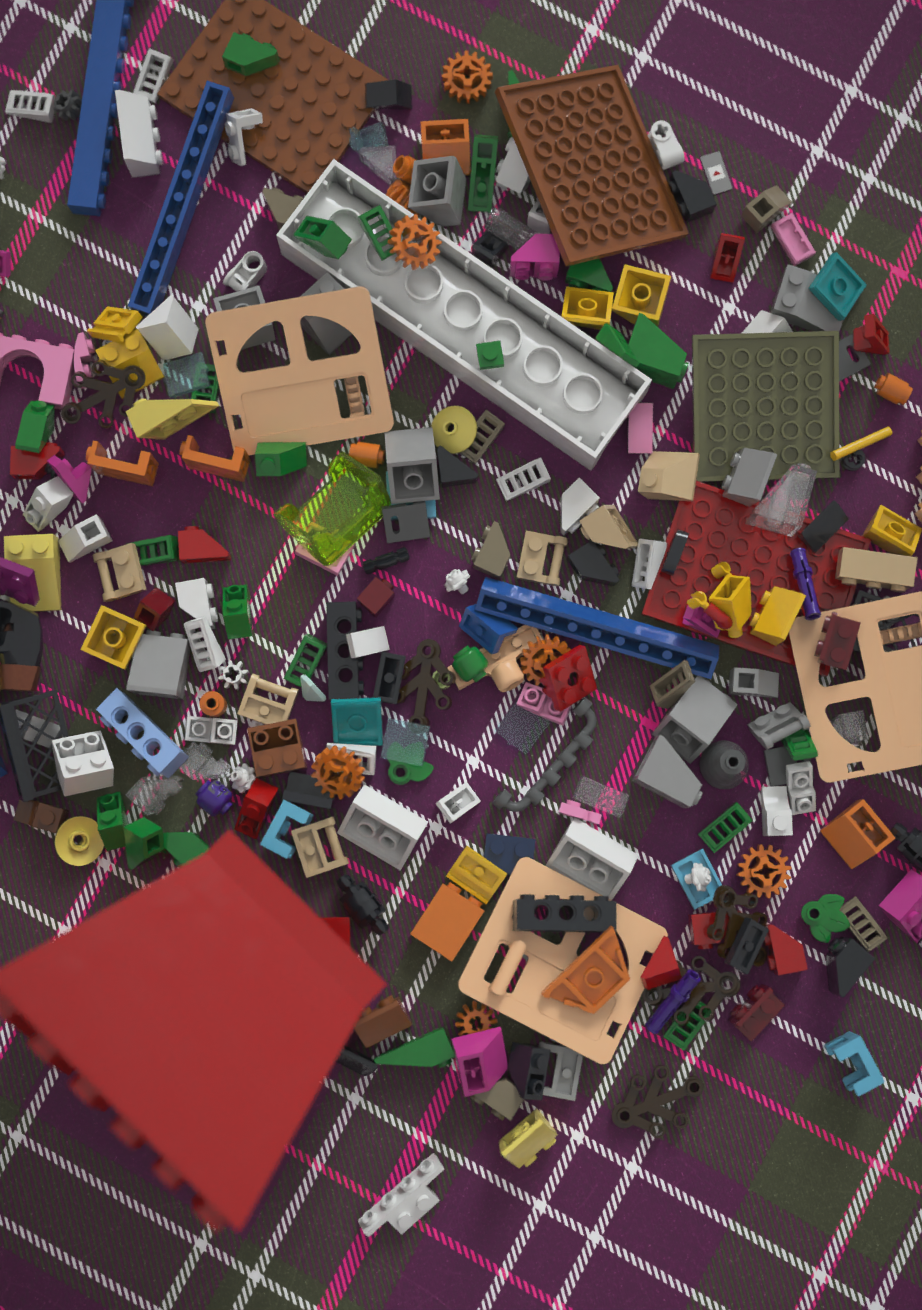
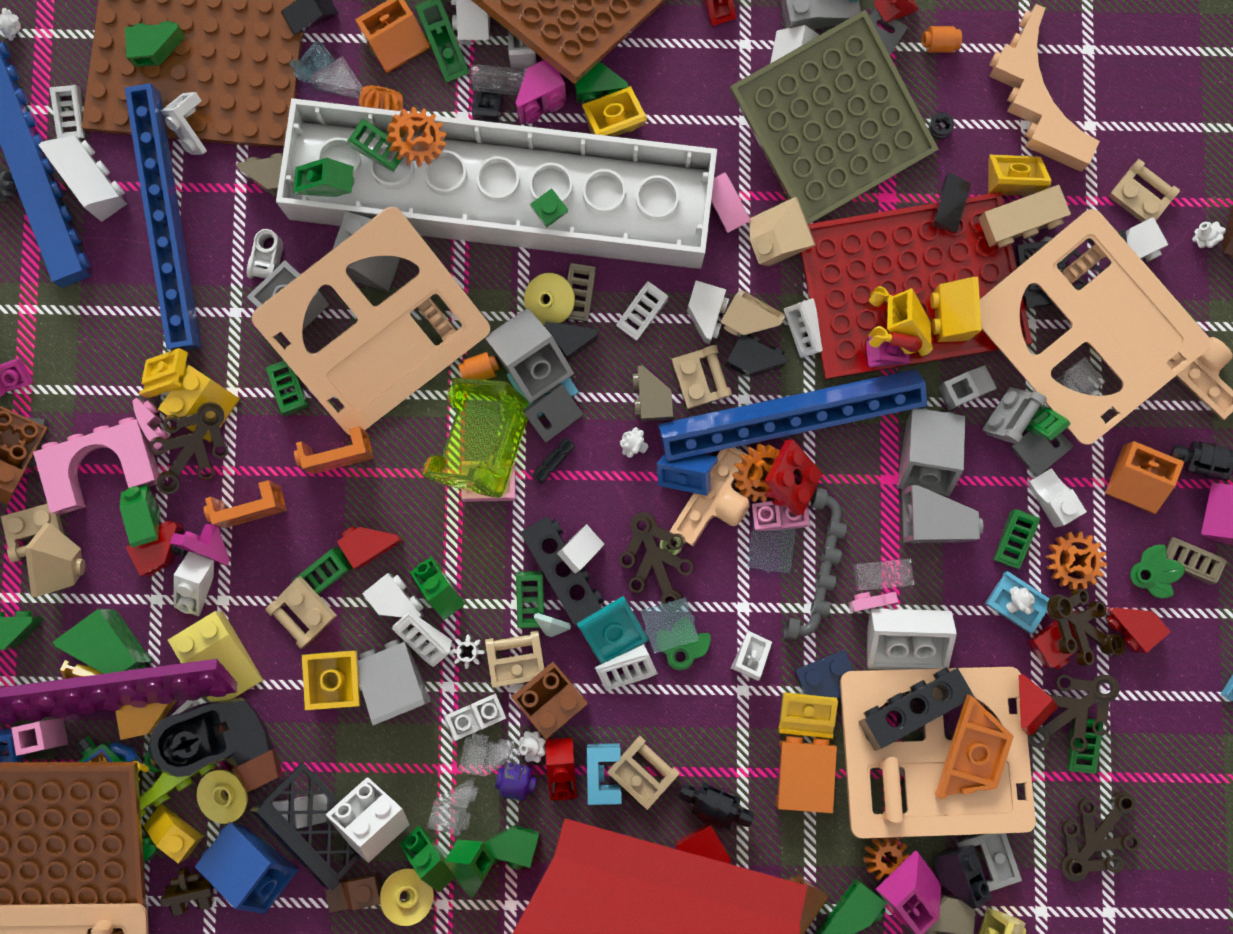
camera: 30 degrees left, 0 degrees up
(84, 538) = (248, 598): white slope -> none
(154, 609) = (355, 630): dark red brick -> none
(165, 417) = (262, 438): light yellow slope -> none
(169, 330) = (220, 350): white slope -> none
(170, 754) = (450, 763): light blue brick -> none
(186, 375) = (260, 385): clear light blue piece -> none
(220, 707) = (470, 684): orange brick -> none
(279, 458) = (397, 417): green slope -> none
(302, 790) = (603, 722): black panel -> none
(338, 761) = (620, 687): orange gear -> none
(376, 596) = (564, 499): dark red brick -> none
(382, 827) = (693, 719): white slope -> none
(389, 677) = (619, 571): black slope -> none
(404, 167) = (371, 72): orange brick -> none
(438, 190) = (408, 76): light grey slope -> none
(470, 664) = (691, 516): green head -> none
(616, 343) = (660, 131): green slope -> none
(641, 293) = (659, 76): yellow slope -> none
(657, 354) = (702, 122): green slope -> none
(667, 699) = (881, 440): dark tan slope -> none
(675, 551) = (826, 303): black beam -> none
(678, 995) = (1064, 726): dark purple pin -> none
(715, 765) = (983, 480): dark grey cone -> none
(746, 945) = (1103, 641): black plate -> none
(748, 475) = (857, 192): light grey slope -> none
(756, 1011) = (1141, 698): dark red bracket -> none
(786, 503) = (906, 198): clear slope -> none
(800, 787) = (1065, 463): white slope -> none
(803, 574) = (958, 258): dark purple pin -> none
(838, 641) = (1029, 304): dark red bracket -> none
(845, 964) = (1204, 608): black slope -> none
(861, 443) = (941, 106): yellow bar -> none

